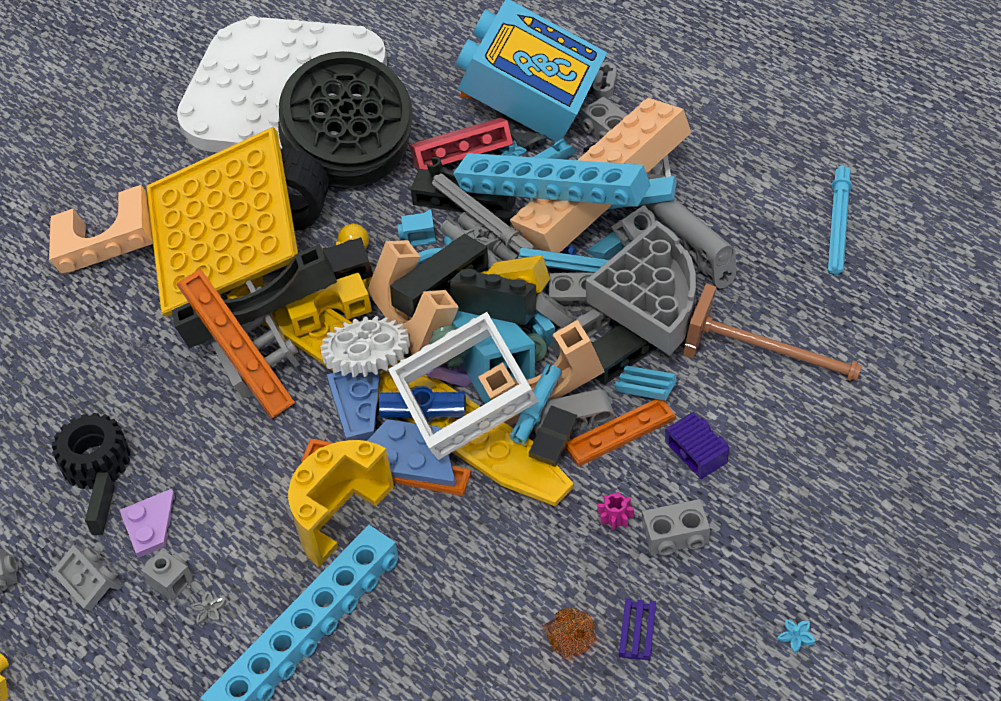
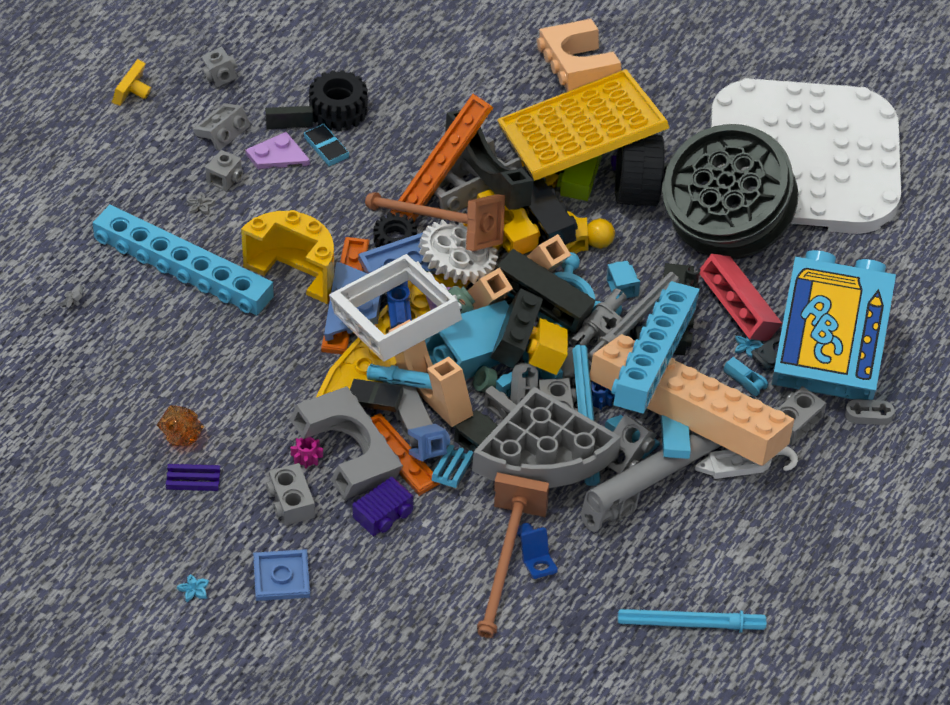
camera: 75 degrees right, 0 degrees up
(150, 473) = (326, 145): none -> black tile
(315, 424) = (393, 224): none -> black tyre
(347, 306) = (483, 217): none -> nougat tile
(623, 392) = (425, 435): none -> medium blue window
(642, 443) = (343, 413): none -> light grey arch
(760, 324) = (535, 550): none -> blue bracket
(780, 547) = (281, 575): none -> medium blue tile

